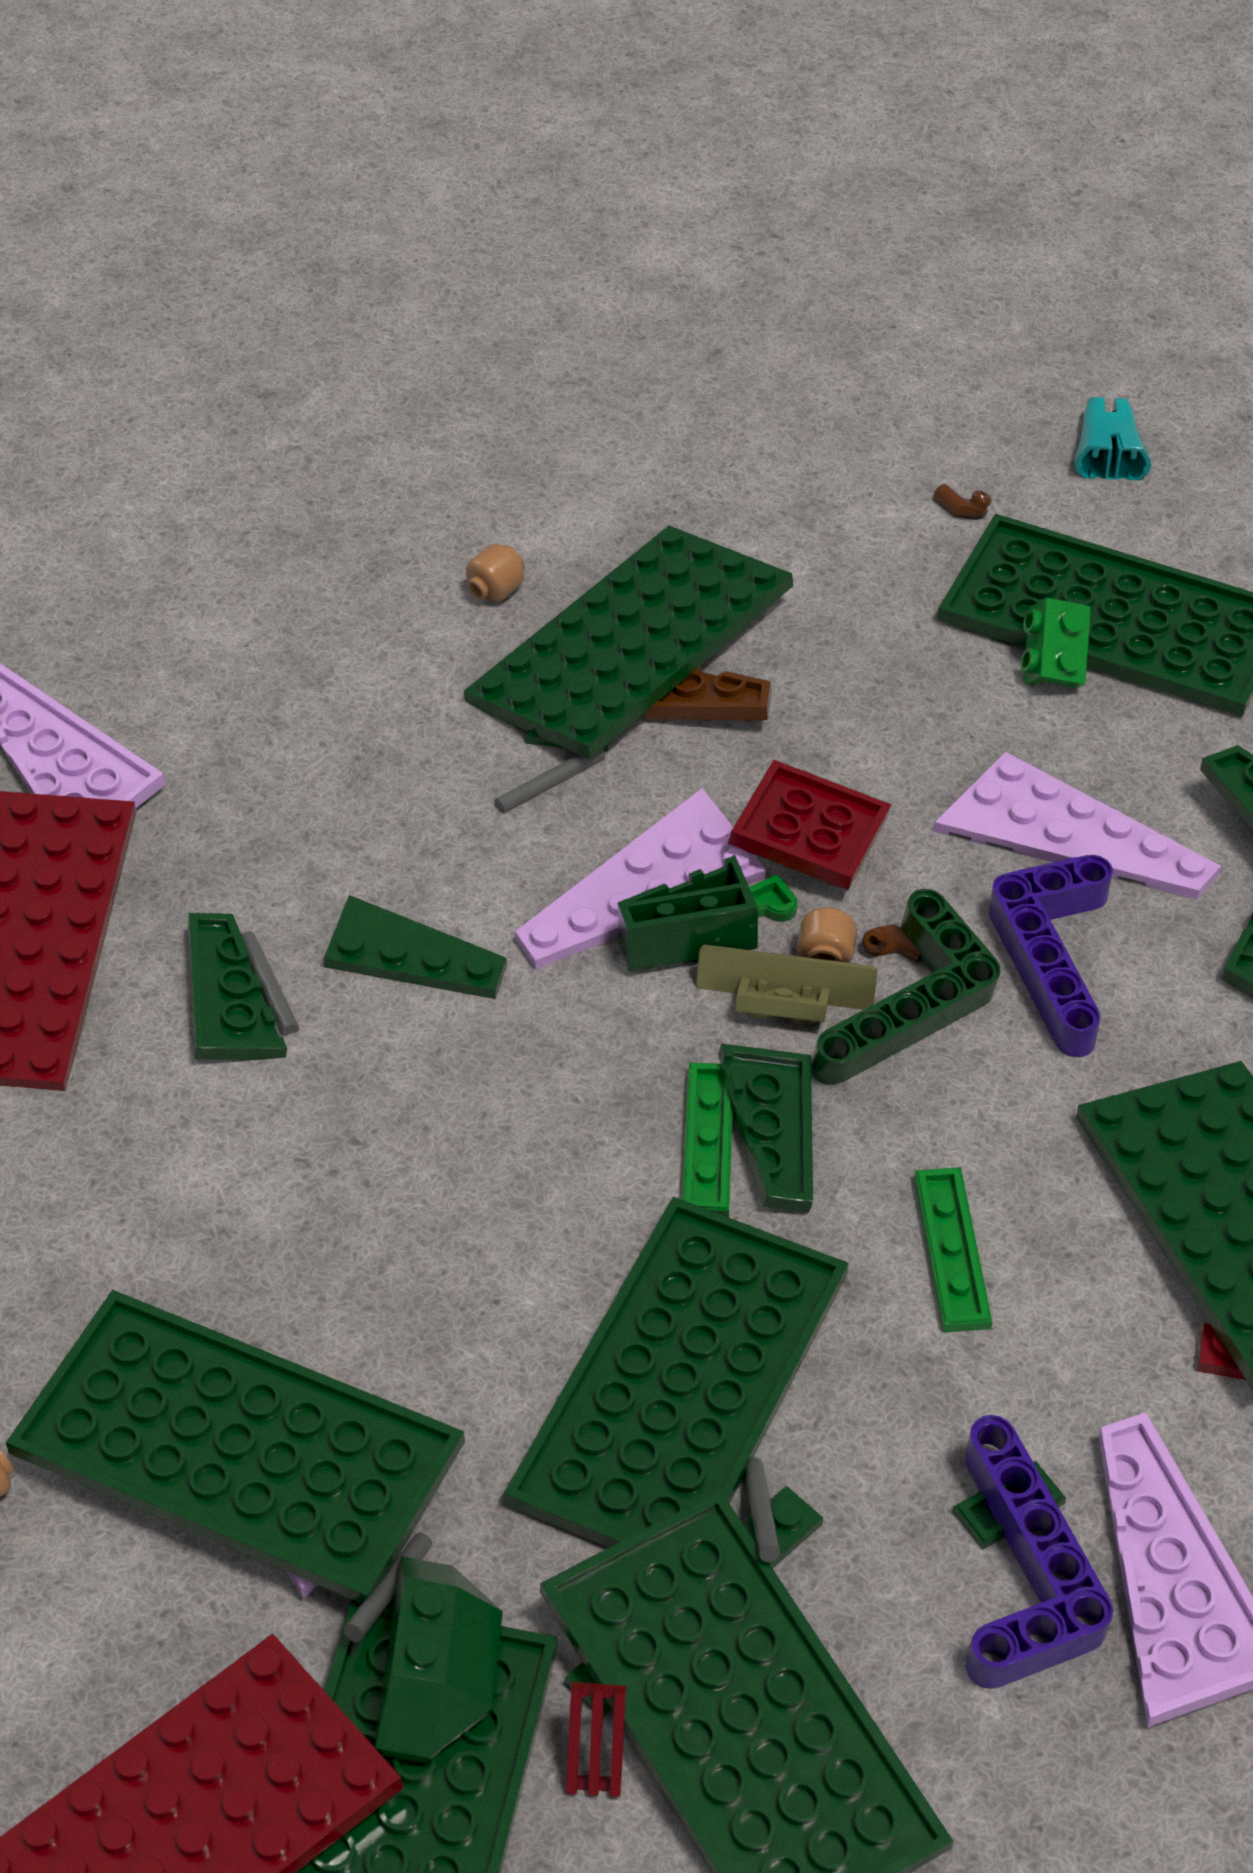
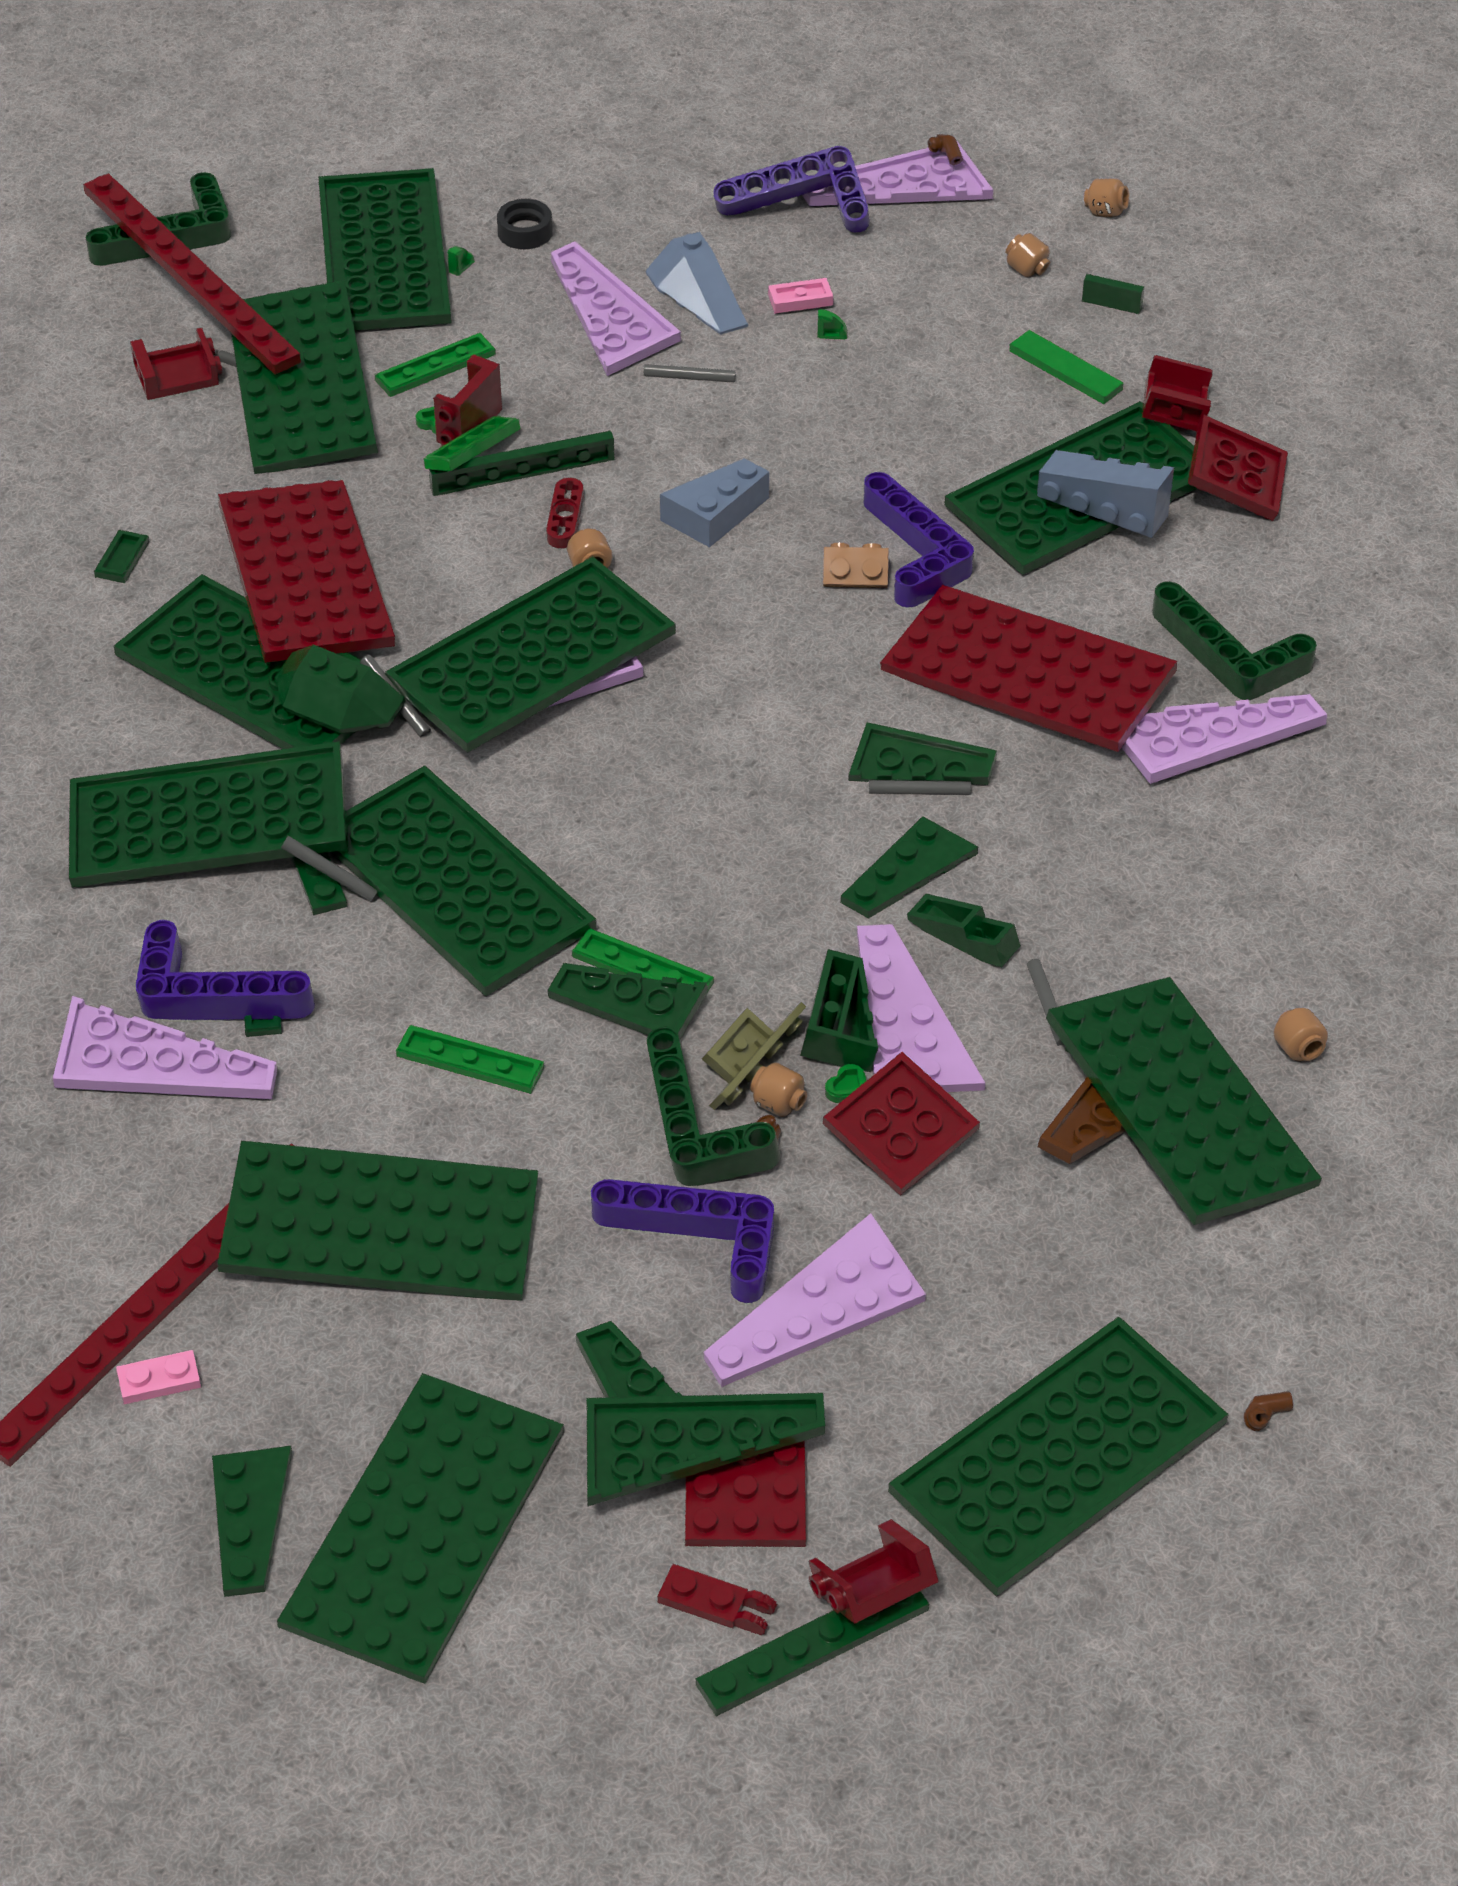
camera: 115 degrees right, 0 degrees up
(487, 866) = (966, 928): none -> dark green slope
(593, 1781) = (238, 741): dark red tile -> none
(1056, 643) = (1020, 1367): green bracket -> none
(1111, 443) = (1303, 1563): teal piece -> none

